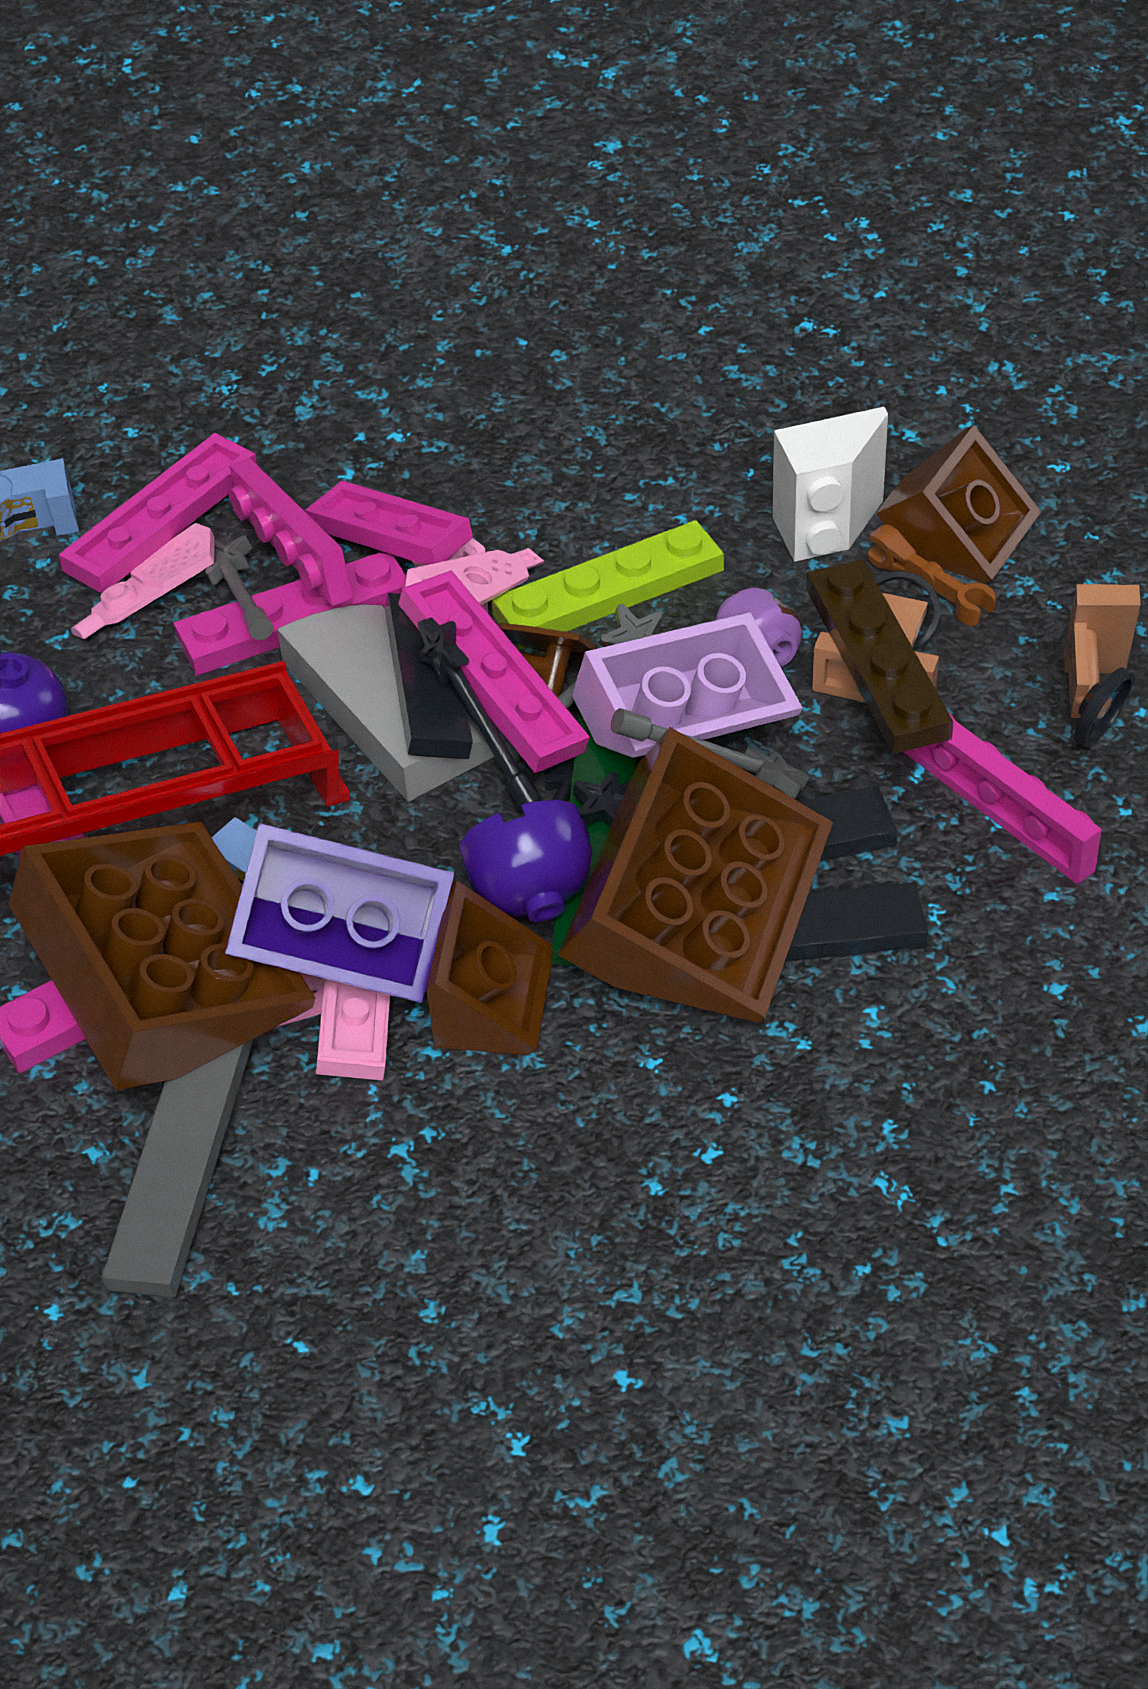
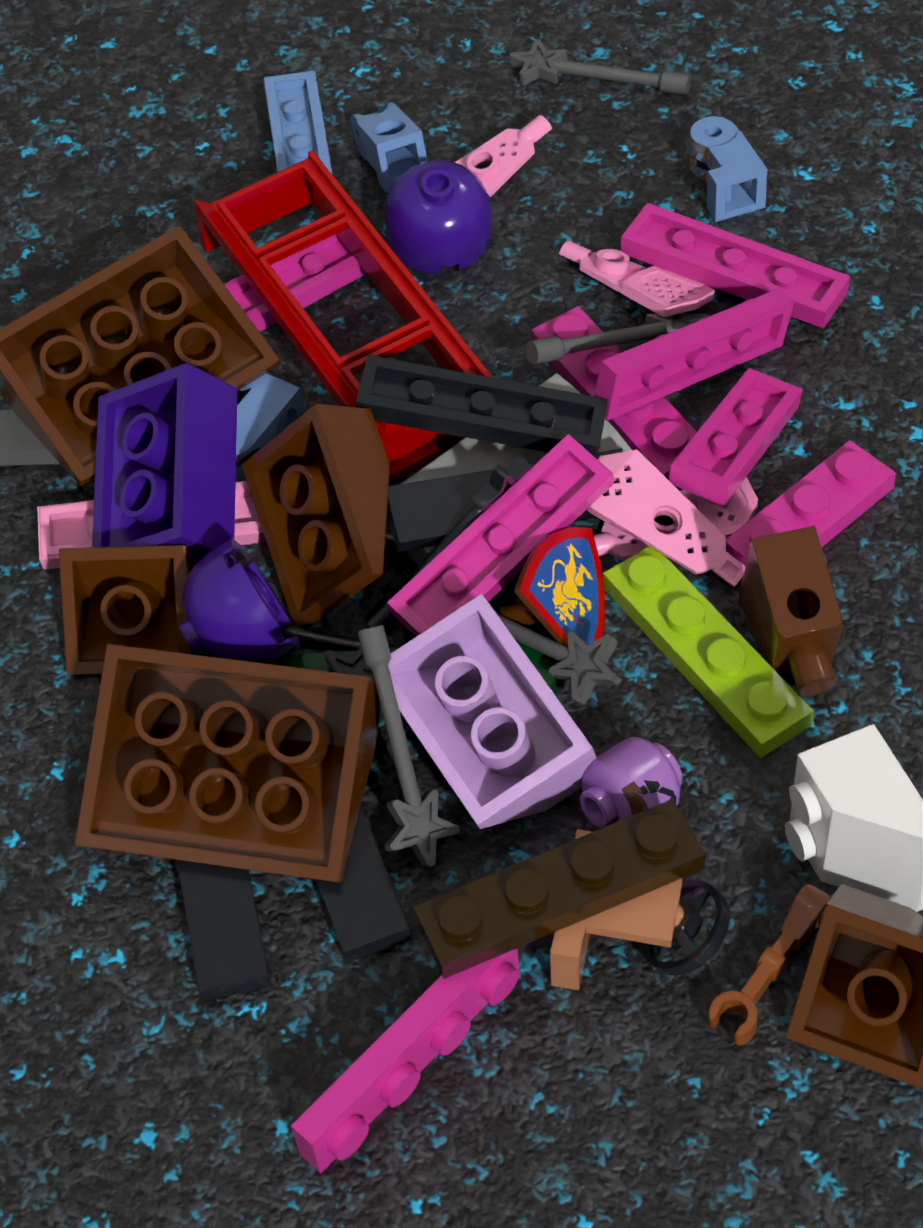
camera: 85 degrees right, 5 degrees up
(331, 662) = (479, 406): none -> black plate
(417, 789) = (323, 507): none -> reddish brown slope
(465, 489) = (825, 497): none -> dark pink plate
(603, 503) = (793, 607): none -> reddish brown torso
(1097, 643) = (625, 1114): nougat piece -> none

